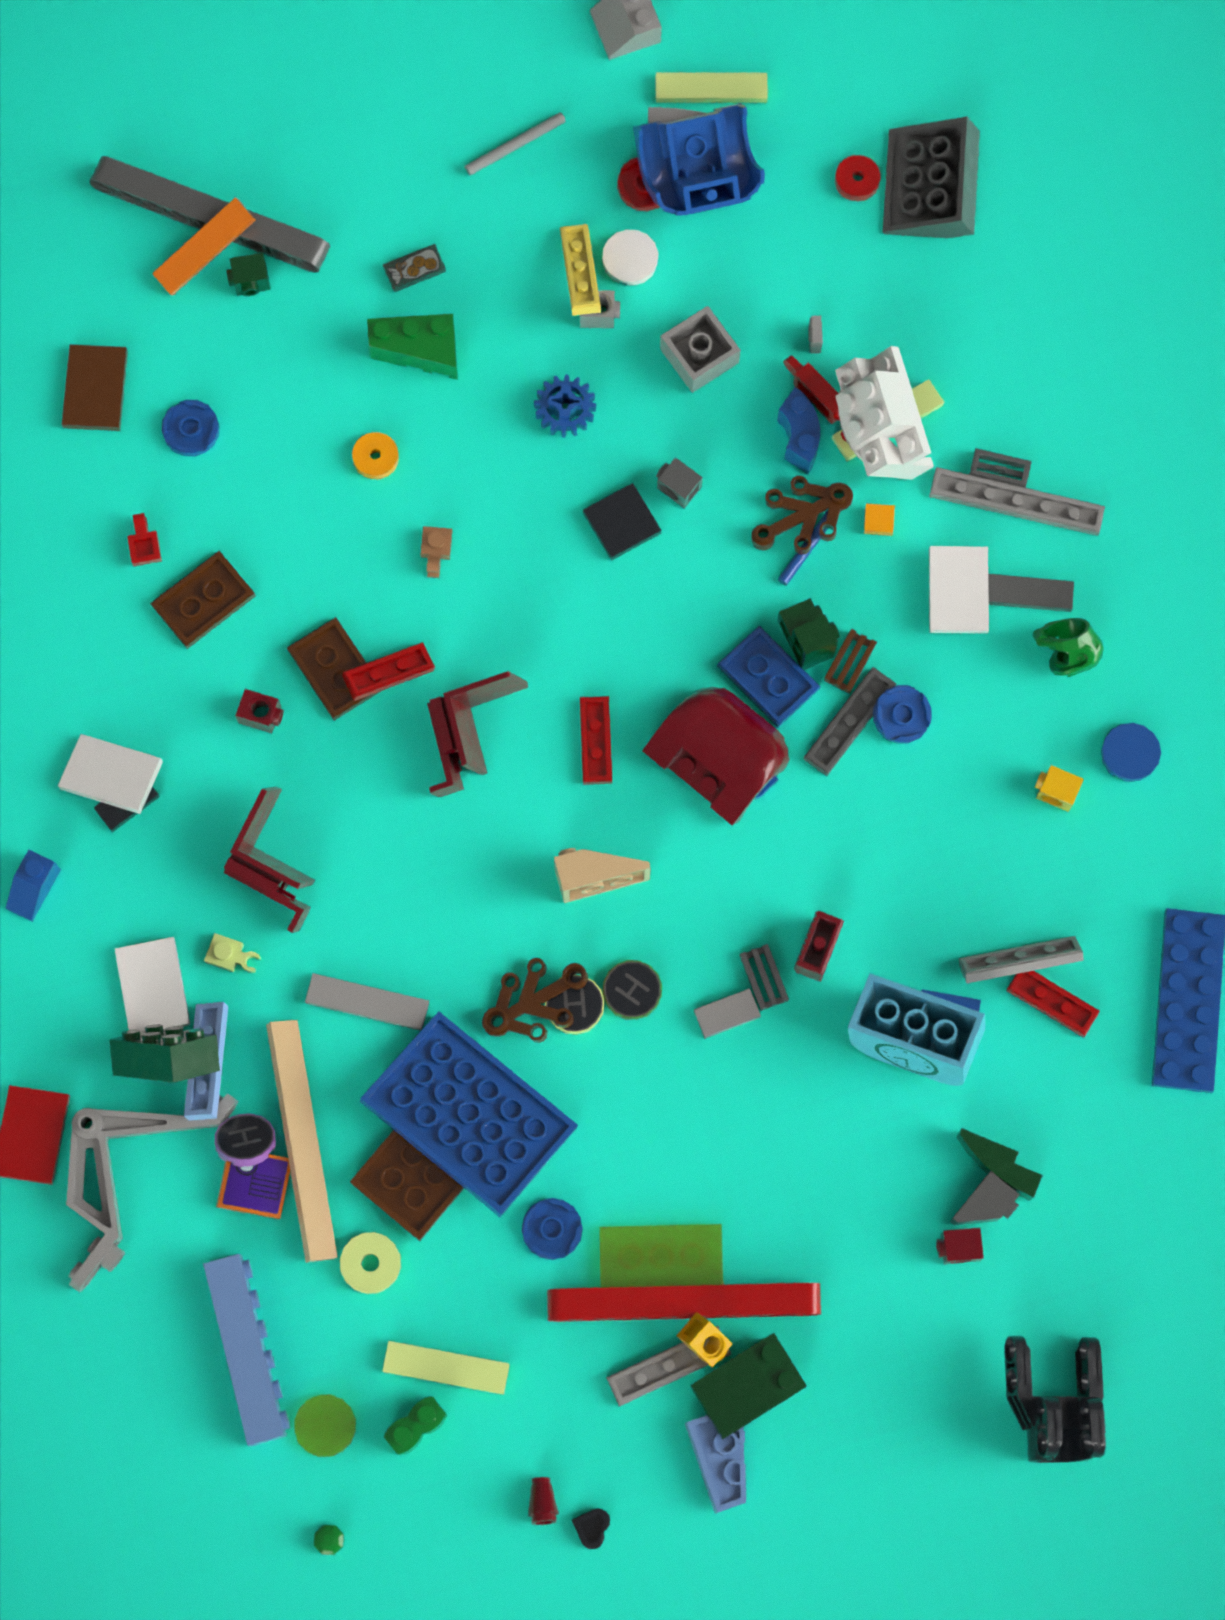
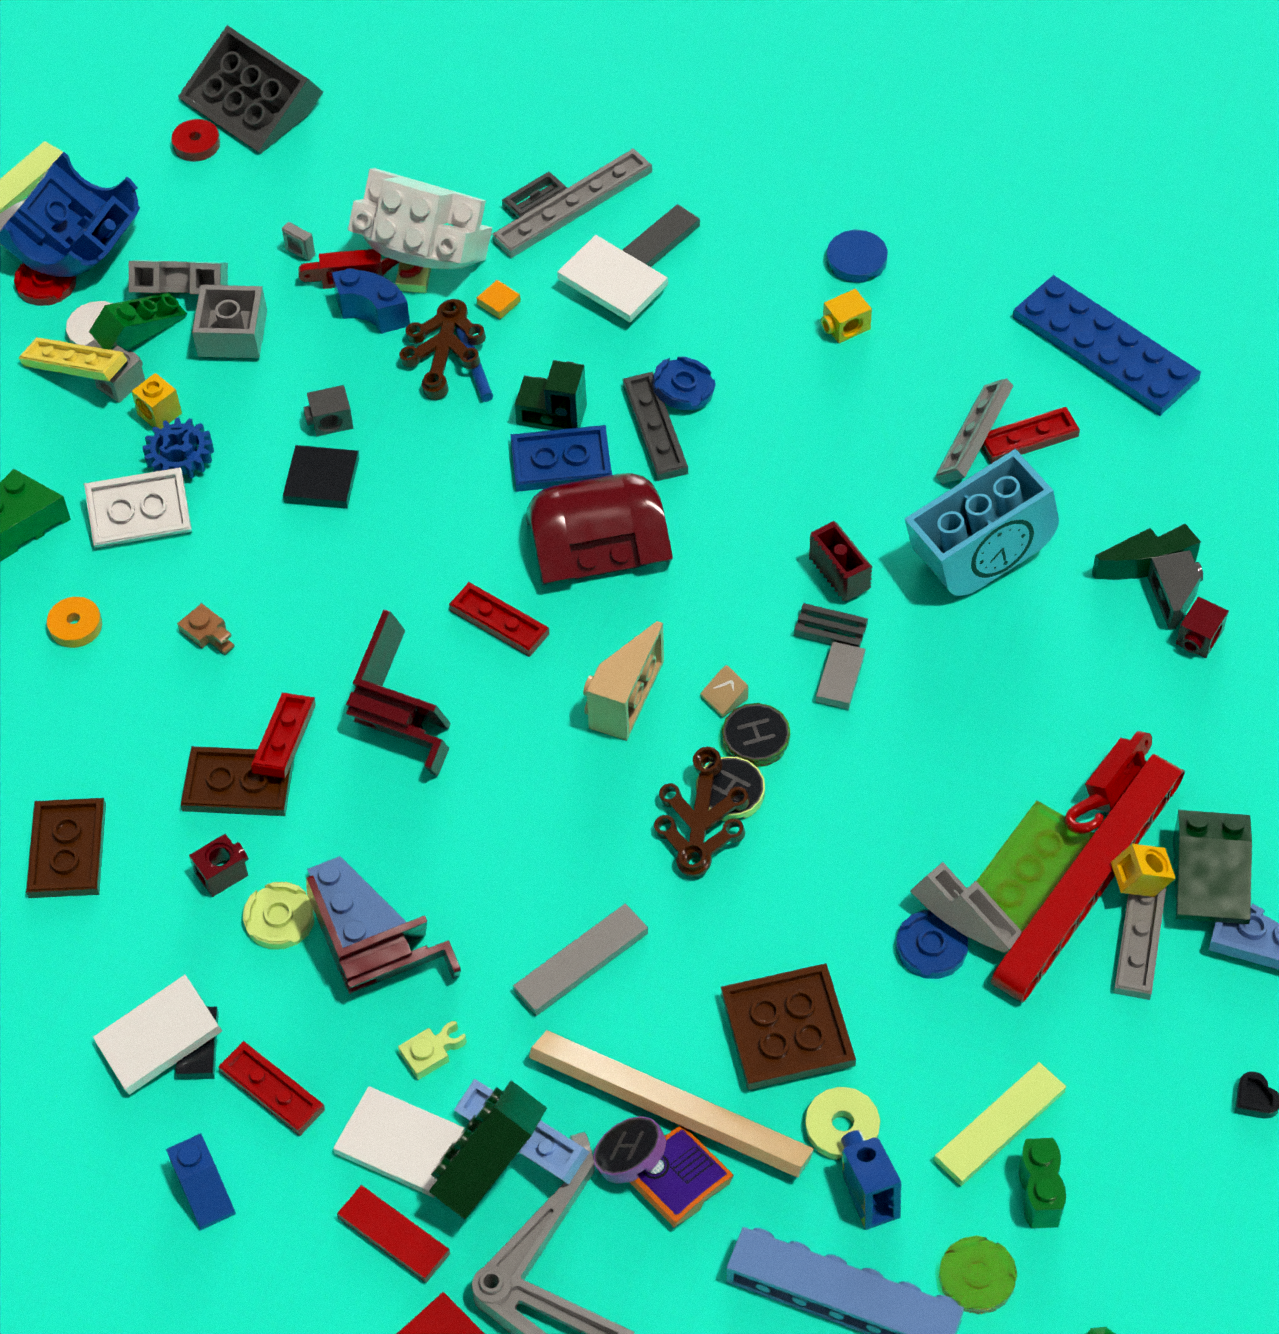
camera: 50 degrees left, 20 degrees down
(86, 1032) = (393, 1233): none -> red tile
(130, 875) = (271, 1088): none -> red tile
(261, 772) = (268, 916): none -> yellowish green tile
(295, 823) = (352, 902): none -> medium blue wing
(330, 1321) = (870, 1180): none -> blue torso
(469, 1114) = (765, 935): blue plate -> none
(494, 420) = (137, 507): none -> white tile
(542, 1502) = (1201, 1121): dark red cone -> none
(588, 1237) = (966, 909): none -> light grey slope
(592, 357) = (156, 401): none -> yellow brick
(650, 284) = (135, 320): none -> green slope
(650, 943) = (725, 691): none -> tan slope
(701, 262) = (175, 276): none -> light grey arch
(772, 1267) = (1110, 781): none -> red piece
(861, 640) = (602, 371): reddish brown tile -> none
(1076, 648) = (736, 228): green helmet -> none

